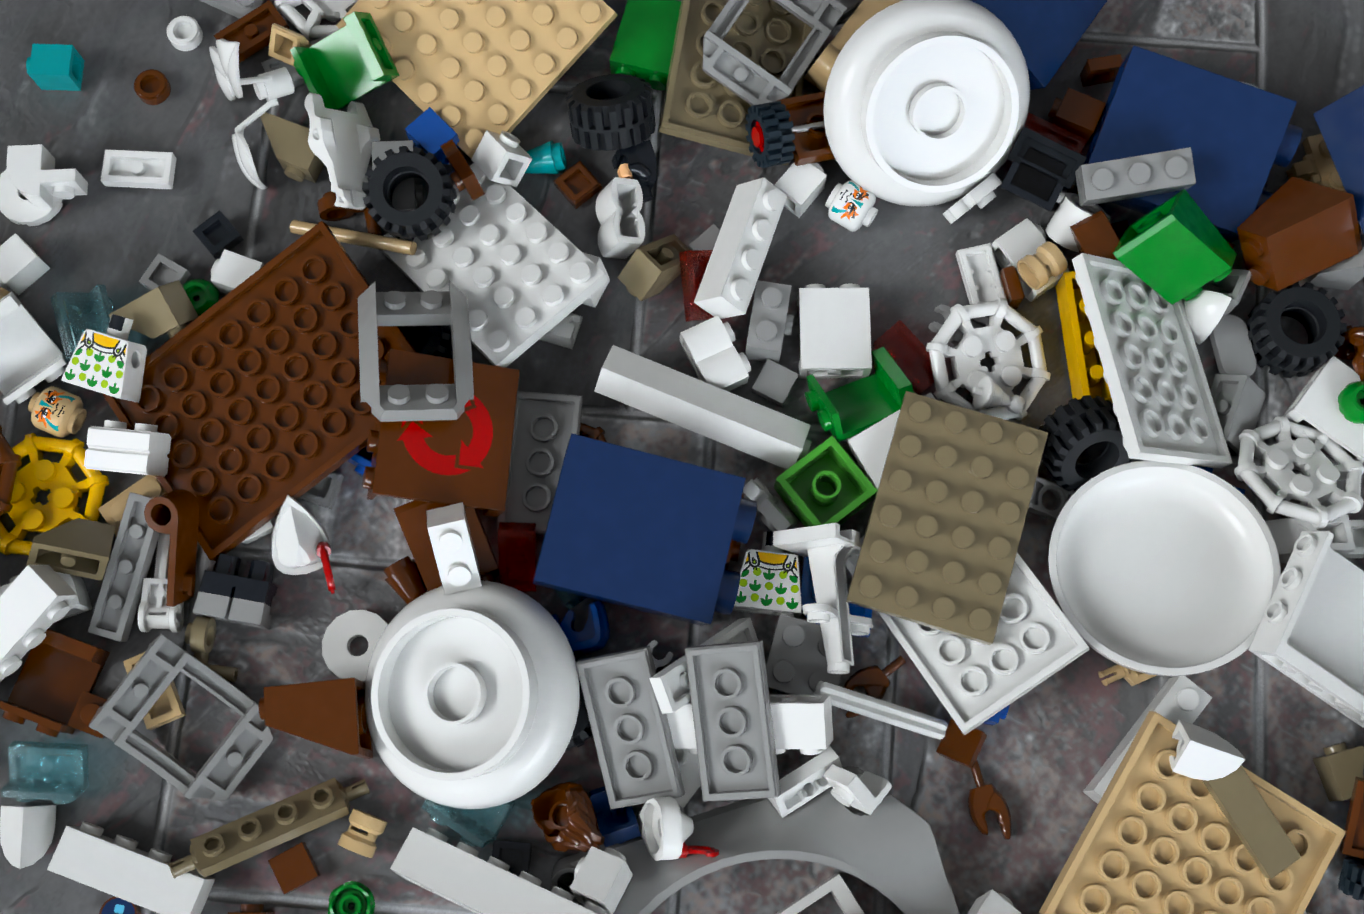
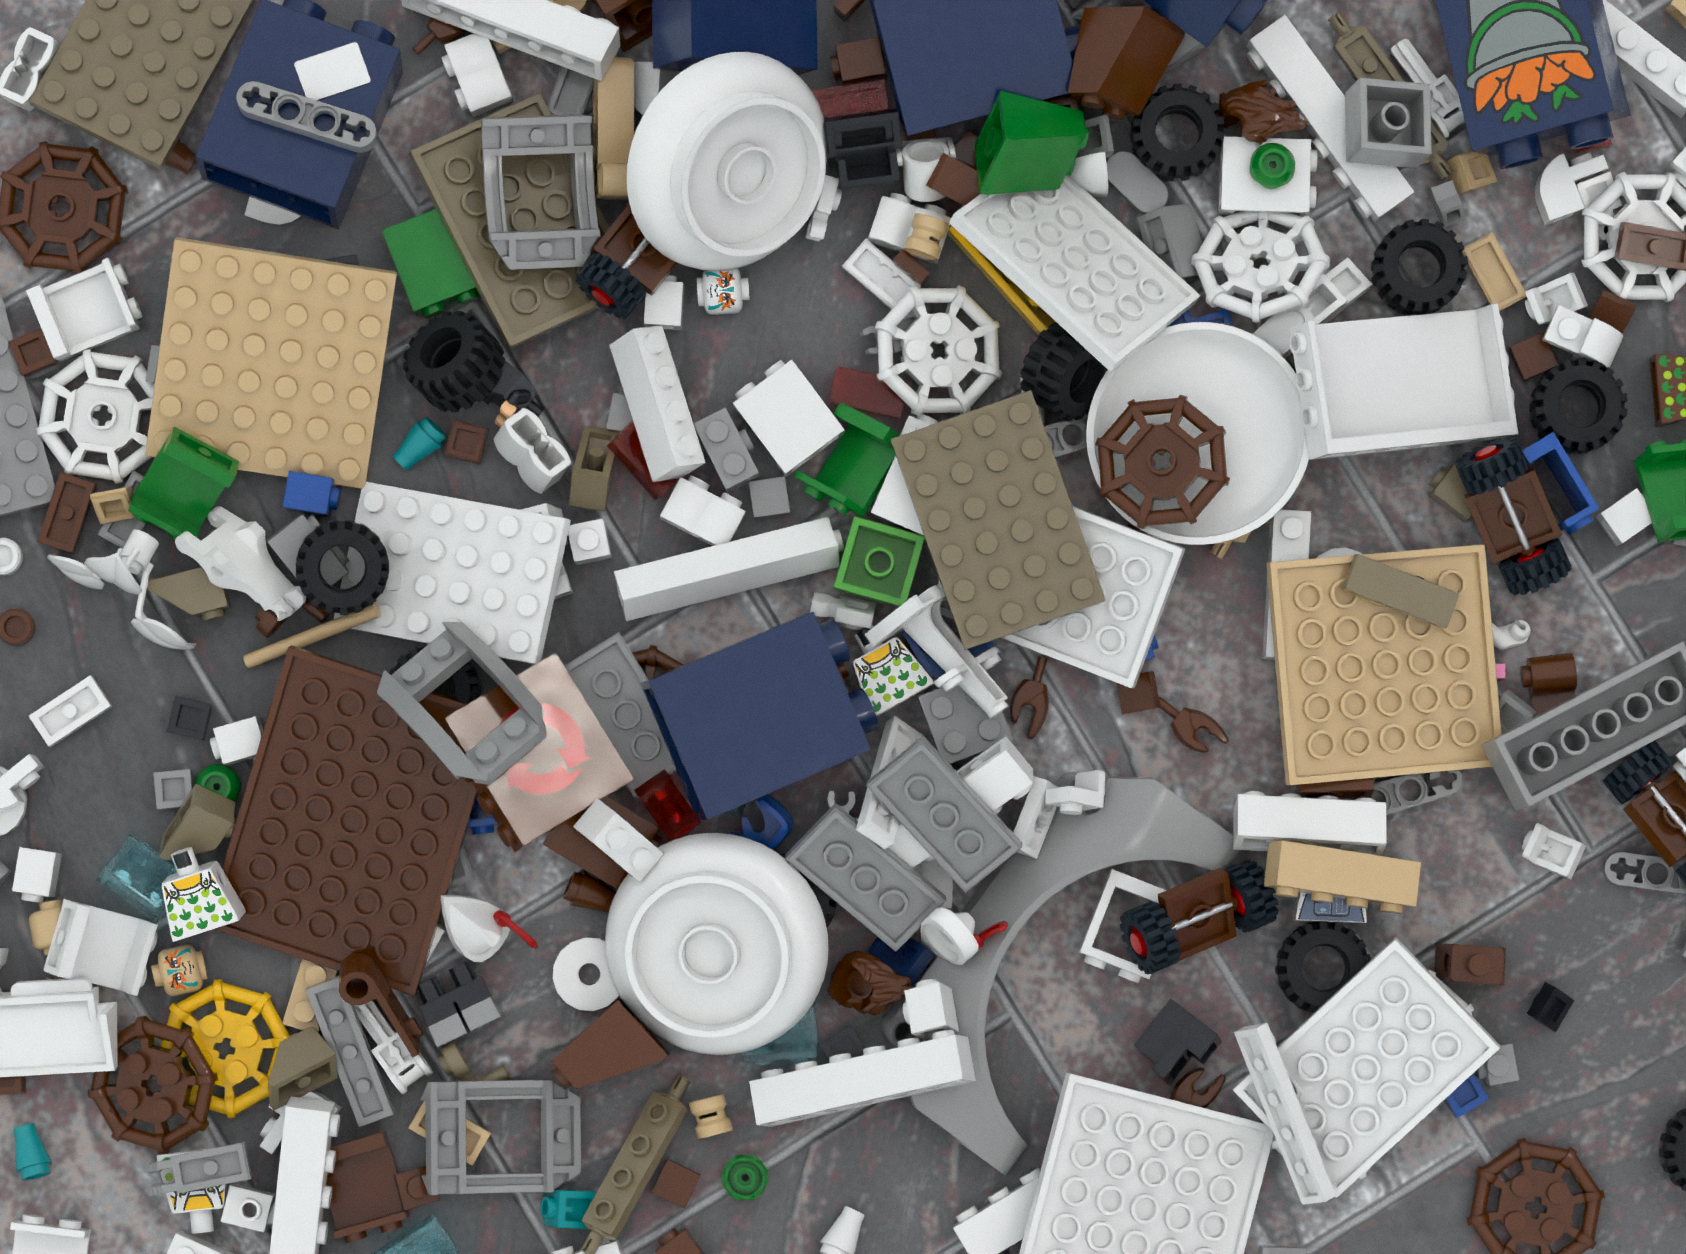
camera: 35 degrees left, 10 degrees up
(127, 450) = (274, 957): white brick -> none
(191, 819) = (566, 1208): none -> teal bracket
(462, 175) = (369, 513): reddish brown plate -> none
(501, 158) = (388, 471): white brick -> none
(612, 316) = (589, 541): none -> white brick
(883, 710) = (1056, 714): white axle -> none
(990, 395) = (962, 382): white piece -> none
(1108, 583) = (1166, 482): none -> reddish brown plate
(1135, 176) = (952, 111): light grey brick -> none
(1203, 753) = (1328, 569): white brick -> none

